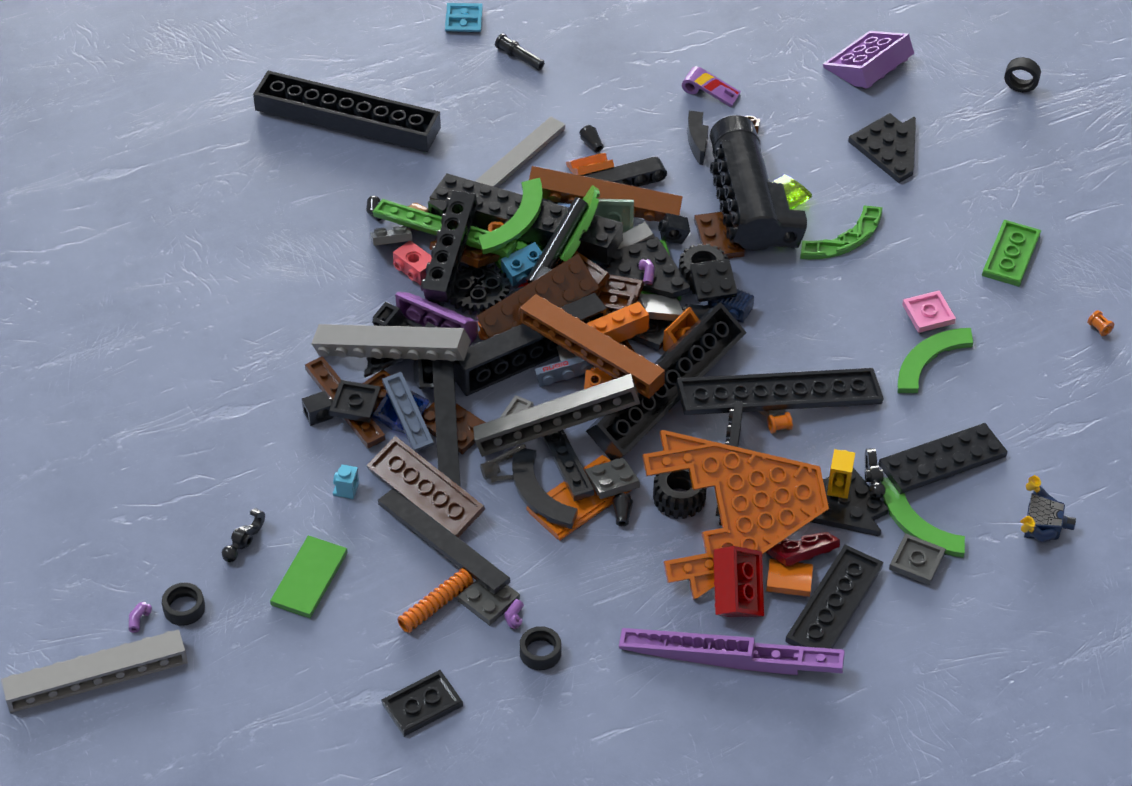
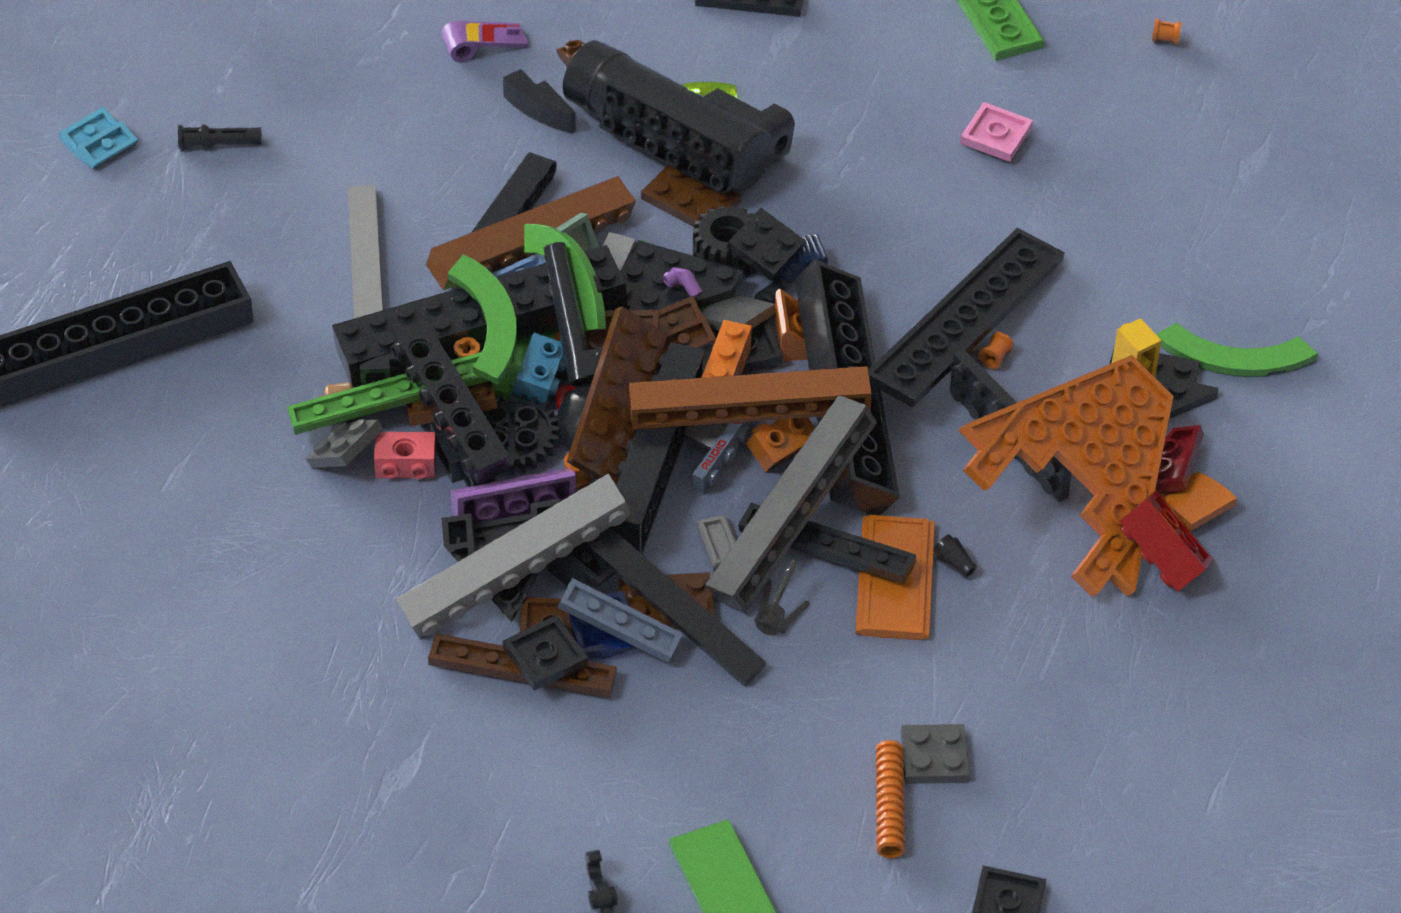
camera: 45 degrees left, 0 degrees up
(317, 408) = (503, 694): black brick -> none
(346, 481) = (639, 749): medium azure brick -> none
(372, 203) = (271, 429): black arm -> none
(425, 486) = (731, 688): plate -> none
(444, 541) = (820, 729): black tile -> none
(511, 614) = (987, 756): medium lavender arm -> none
(534, 495) = (852, 609): black tile -> none
(540, 633) = (1053, 742): black tyre -> none
(589, 164) = (462, 210): orange slope -> none
(591, 138) = (424, 180): black cone -> none
(612, 478) = (915, 528): dark grey plate -> none
(674, 228) = (643, 219): black brick -> none
(674, 502) = (988, 509): black tyre -> none
(732, 651) = (1234, 617): medium lavender slope -> none
(835, 600) = (1264, 493): black plate -> none
(846, 241) = (826, 110): bright green tile -> none
(874, 474) = (1173, 348): black piece -> none
(917, 559) = (1284, 391): dark grey plate -> none
(926, 352) = (1041, 180): bright green tile -> none
(942, 458) = (1187, 273): black plate -> none
(1044, 514) = (1343, 261): torso -> none

